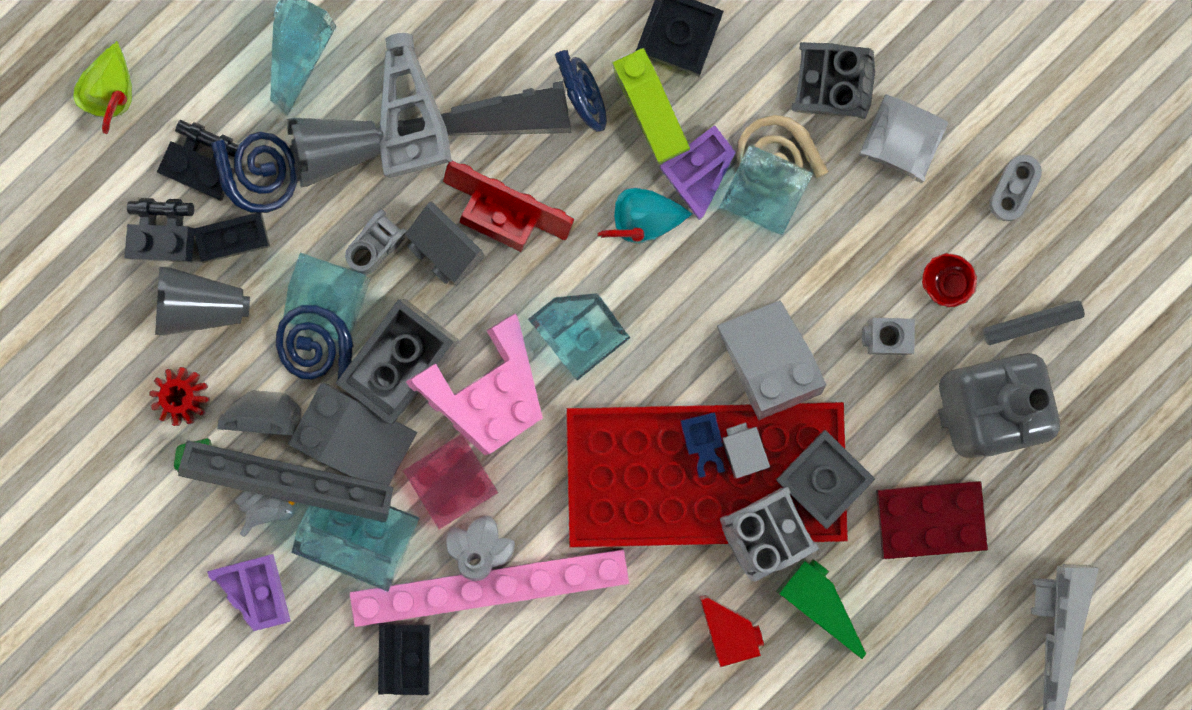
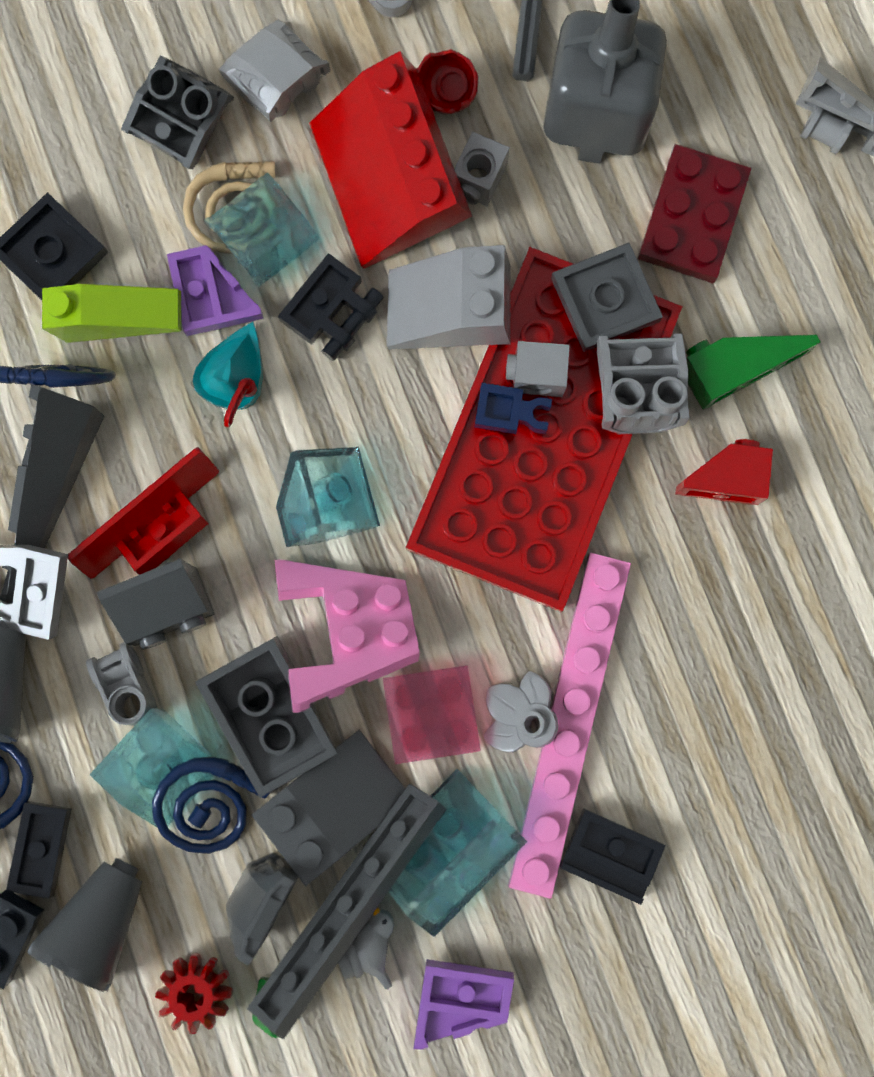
camera: 70 degrees left, 5 degrees down
(732, 259) = (321, 299): none -> black plate
(861, 264) = (388, 161): none -> red slope

